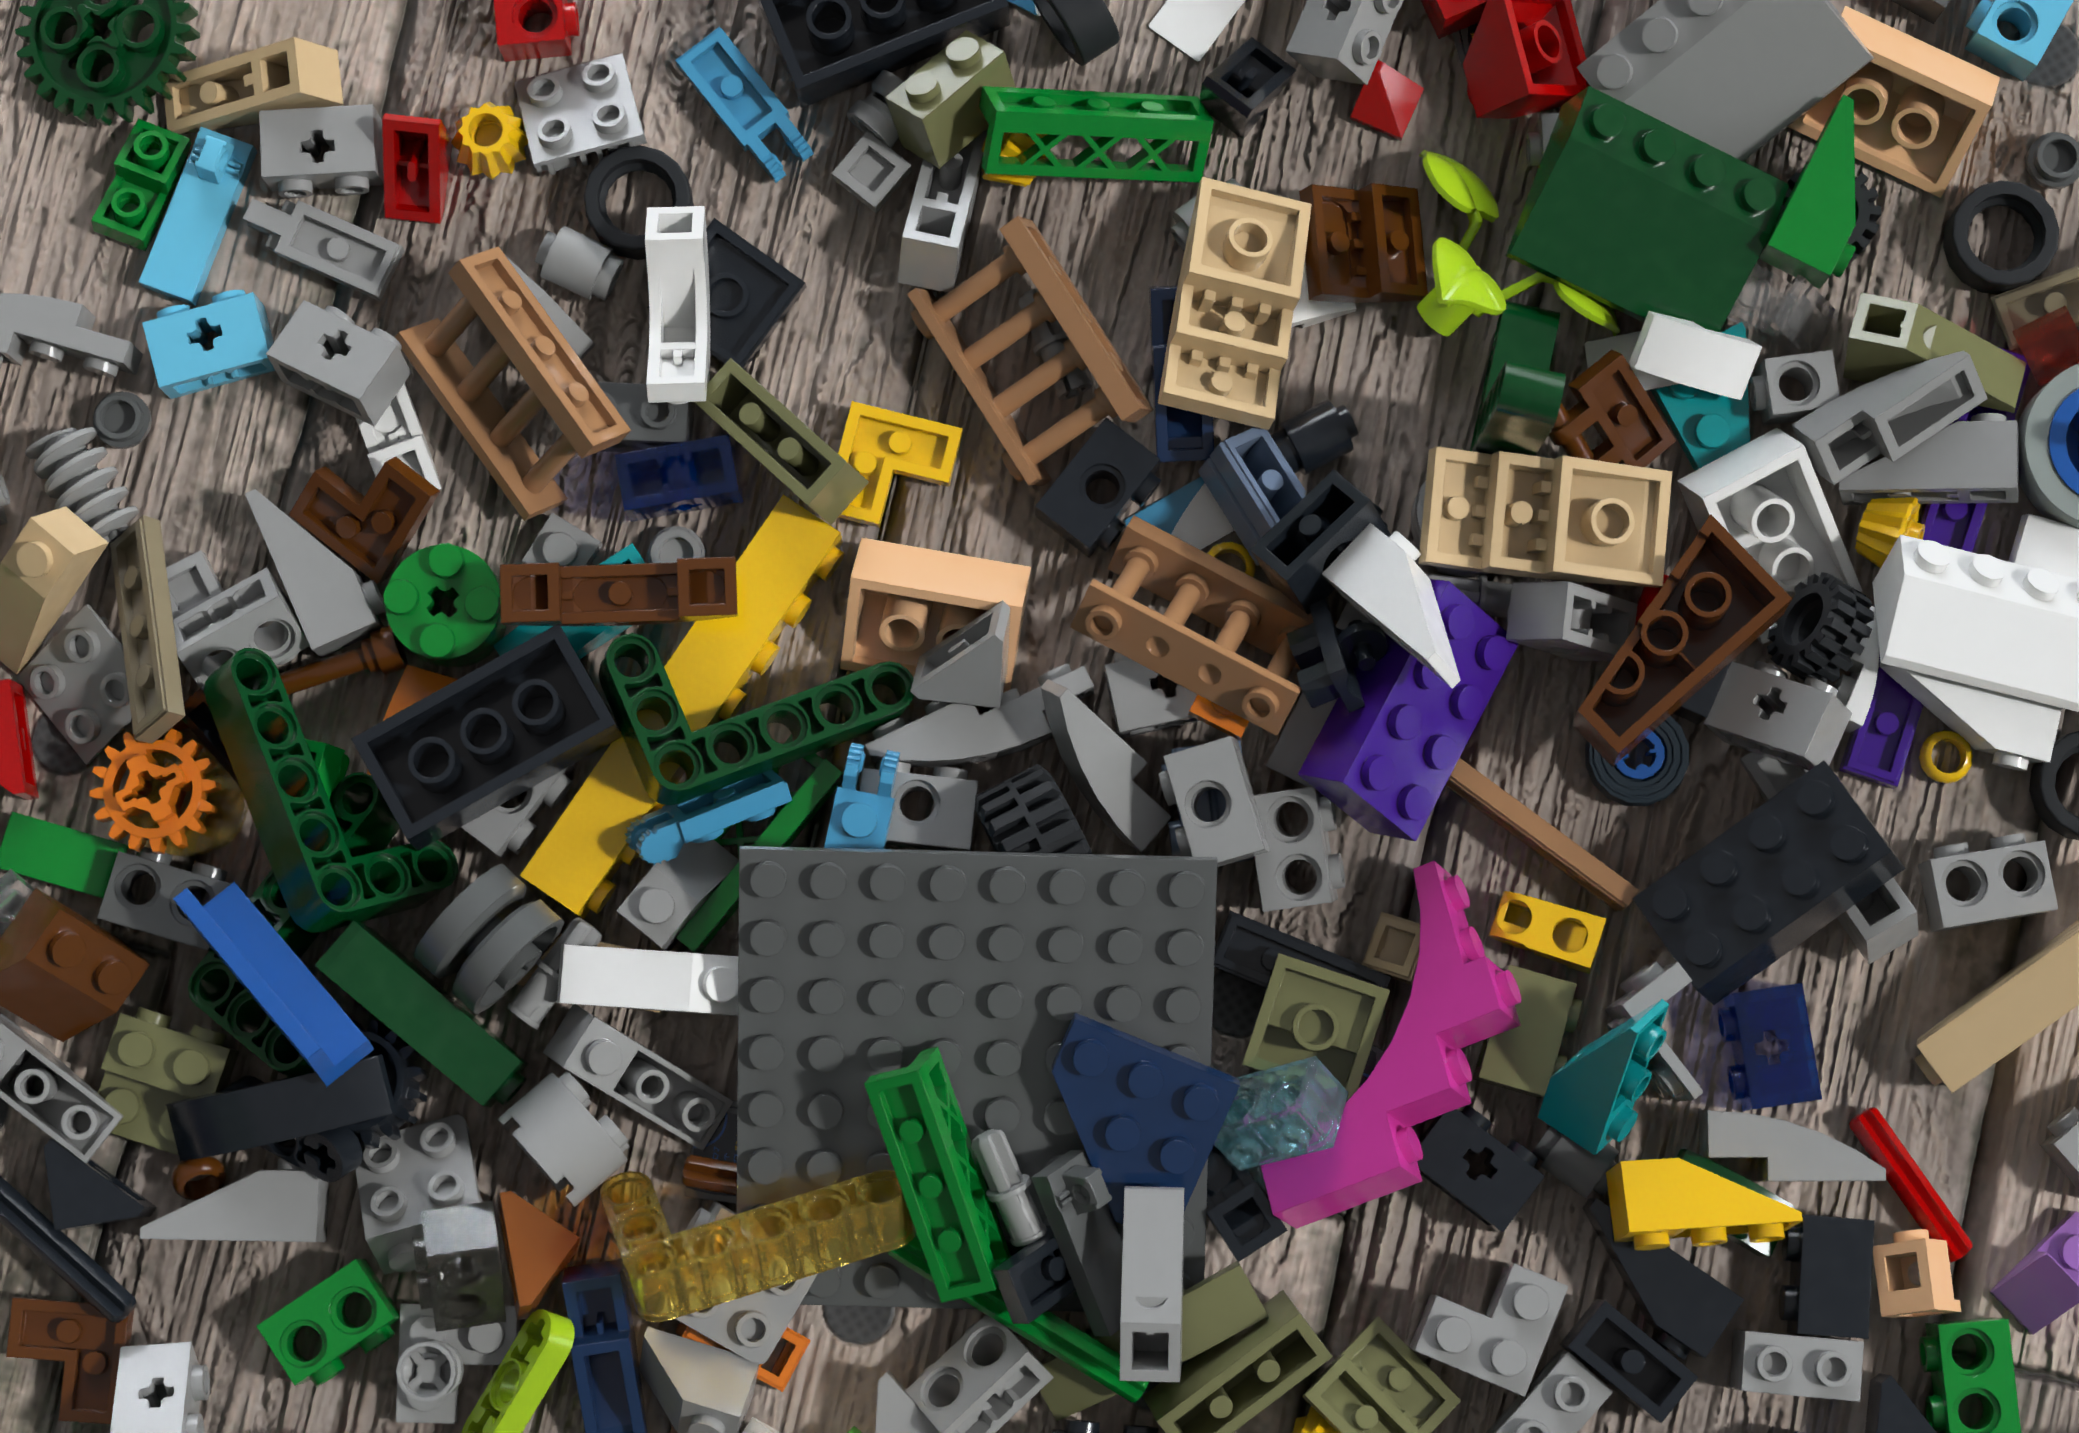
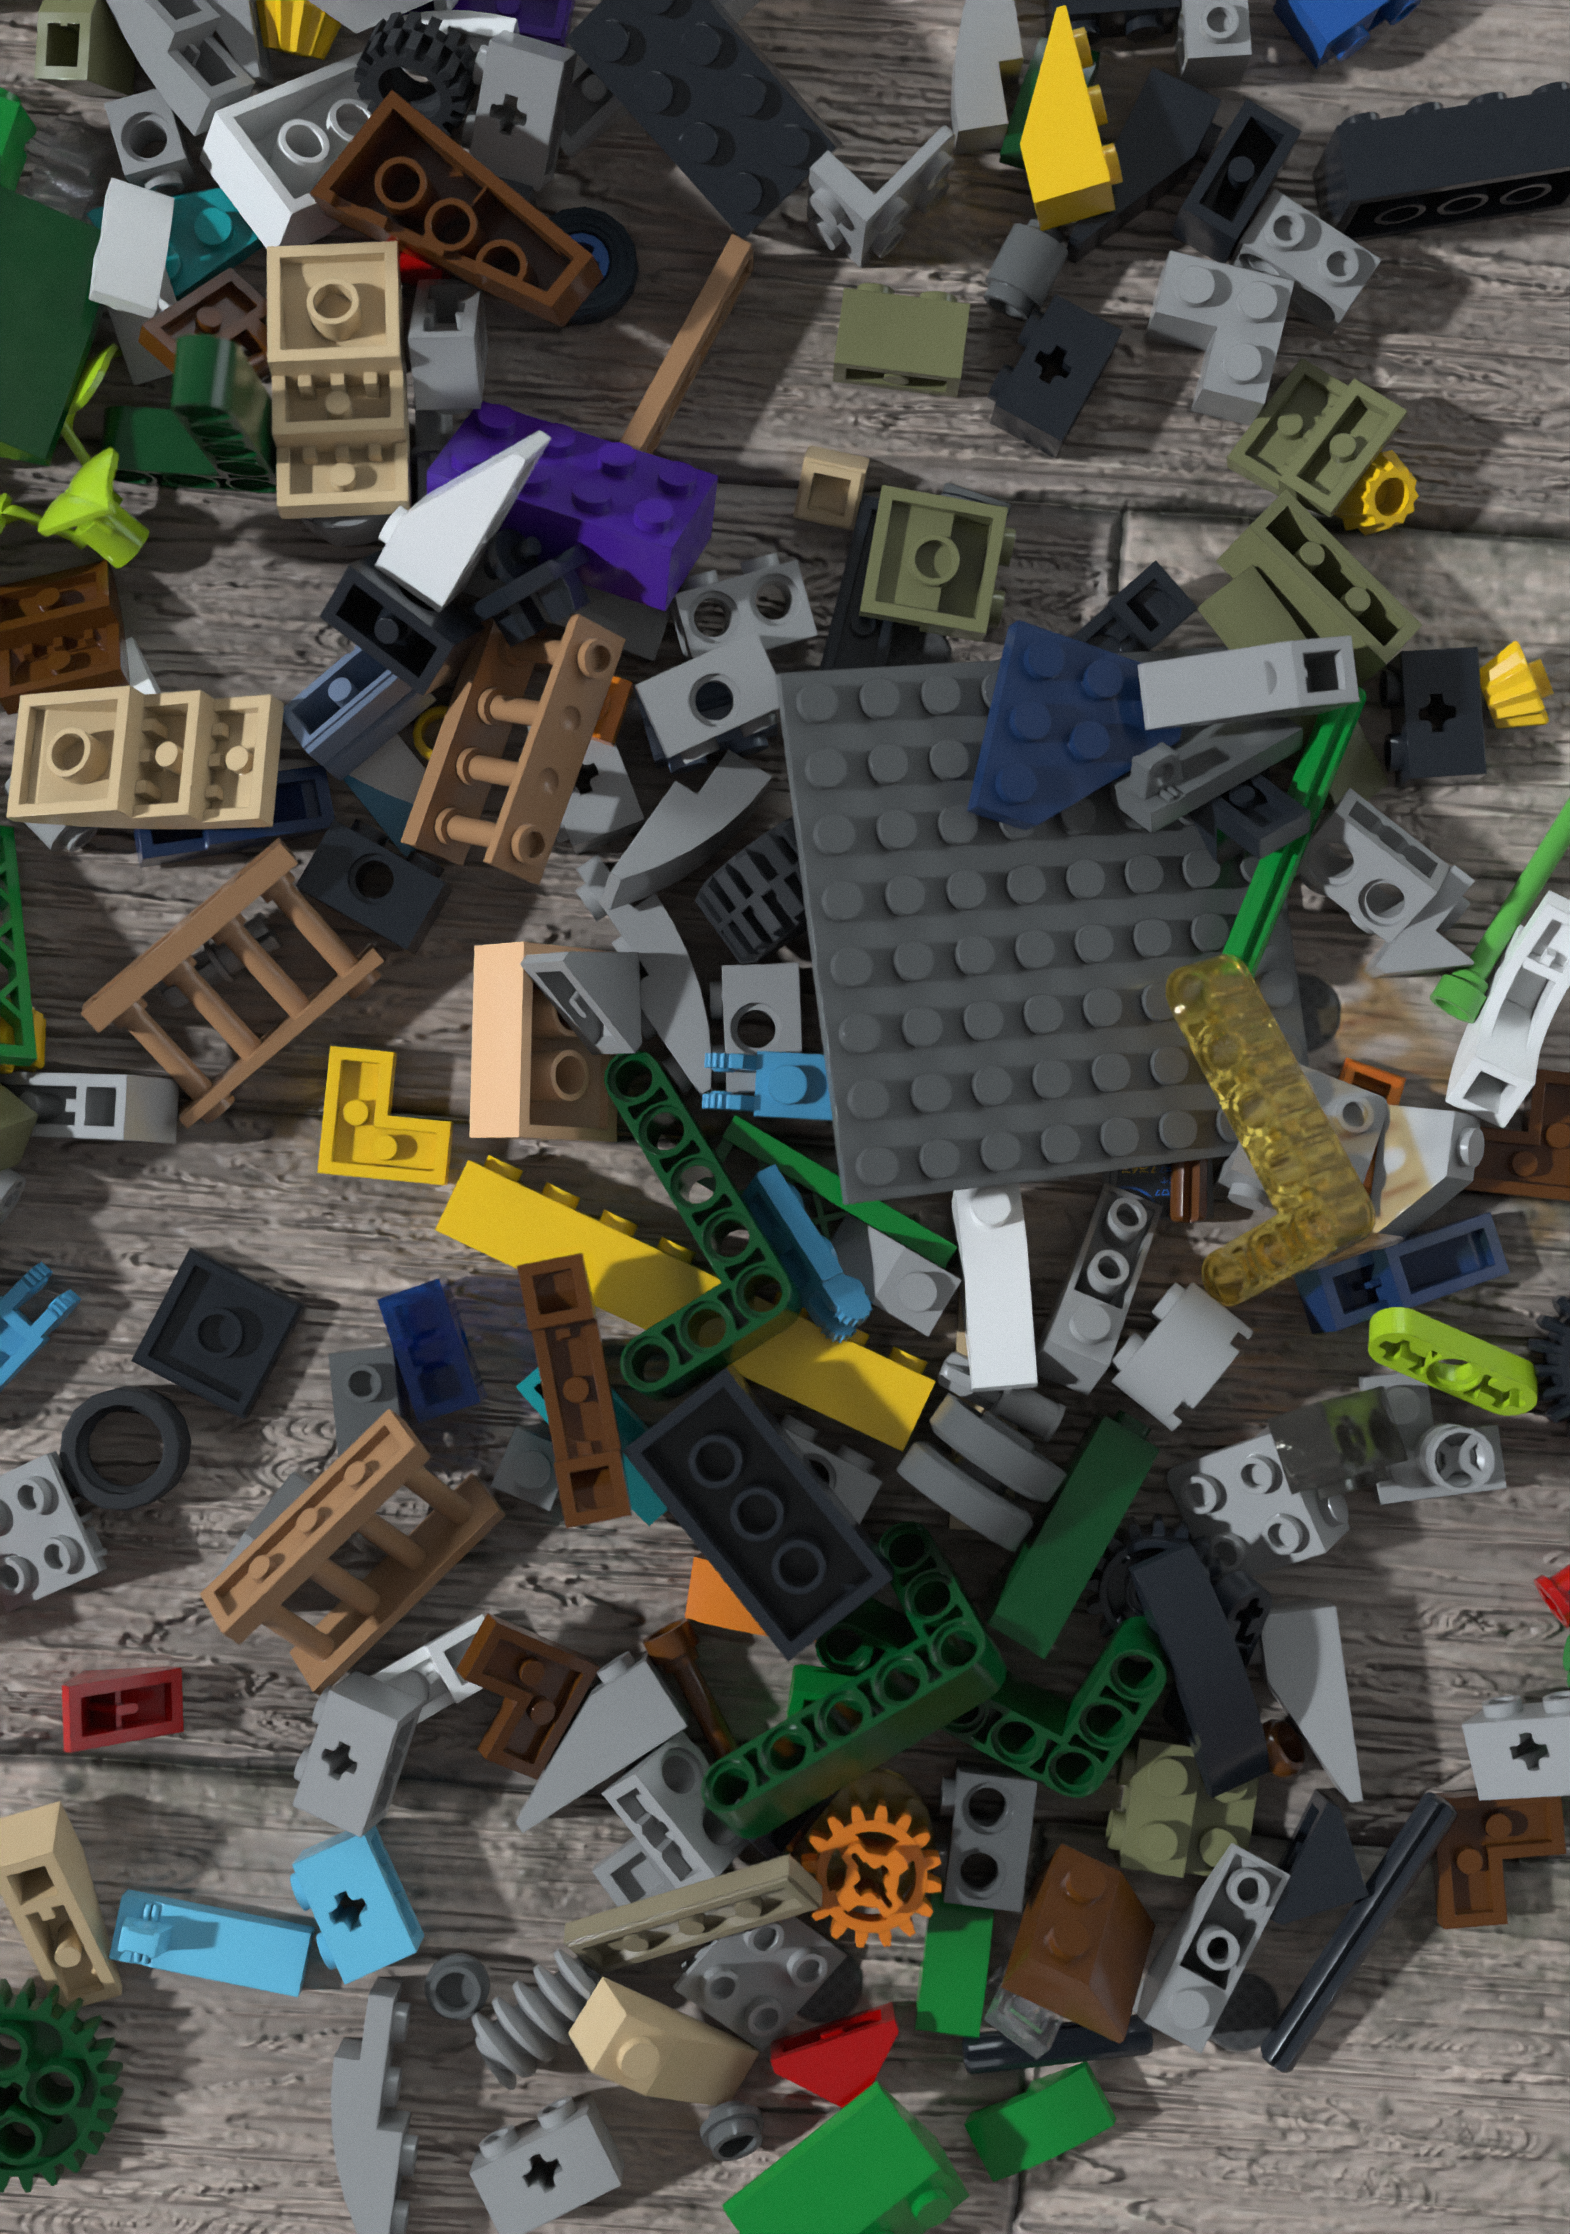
camera: 105 degrees left, 5 degrees up
(143, 184) = (185, 2011): green slope -> none
(277, 981) = (1069, 1697): blue fence -> none
(296, 135) = (103, 1847): light grey brick -> none
(325, 1311) = (1405, 1585): green brick -> none
(327, 245) = (225, 1790): light grey hinge -> none
(414, 606) = (616, 1621): green brick -> none
(490, 140) = (77, 1627): yellow piece -> none
(534, 1250) = (1304, 1368): dark orange slope -> none
(579, 263) = (205, 1503): light grey brick -> none
(675, 543) = (511, 1342): light grey tile -> none
(678, 304) = (237, 1381): white arch -> none
(781, 442) = (375, 1241): olive brick -> none
(871, 171) = (53, 1193): light grey plate -> none
(939, 1175) = (1166, 933): green fence -> none
(1008, 1187) = (1163, 860): light grey axle -> none
(1282, 1114) = (1035, 574): clear light blue brick -> none
(1316, 437) = (281, 655): black brick -> none
(1422, 1074) = (888, 414): dark pink arch -> none
(1548, 930) = (787, 329): yellow leg -> none
(1599, 1085) = (939, 239): teal slope -> none
(1784, 1019) = (898, 55): clear blue brick -> none

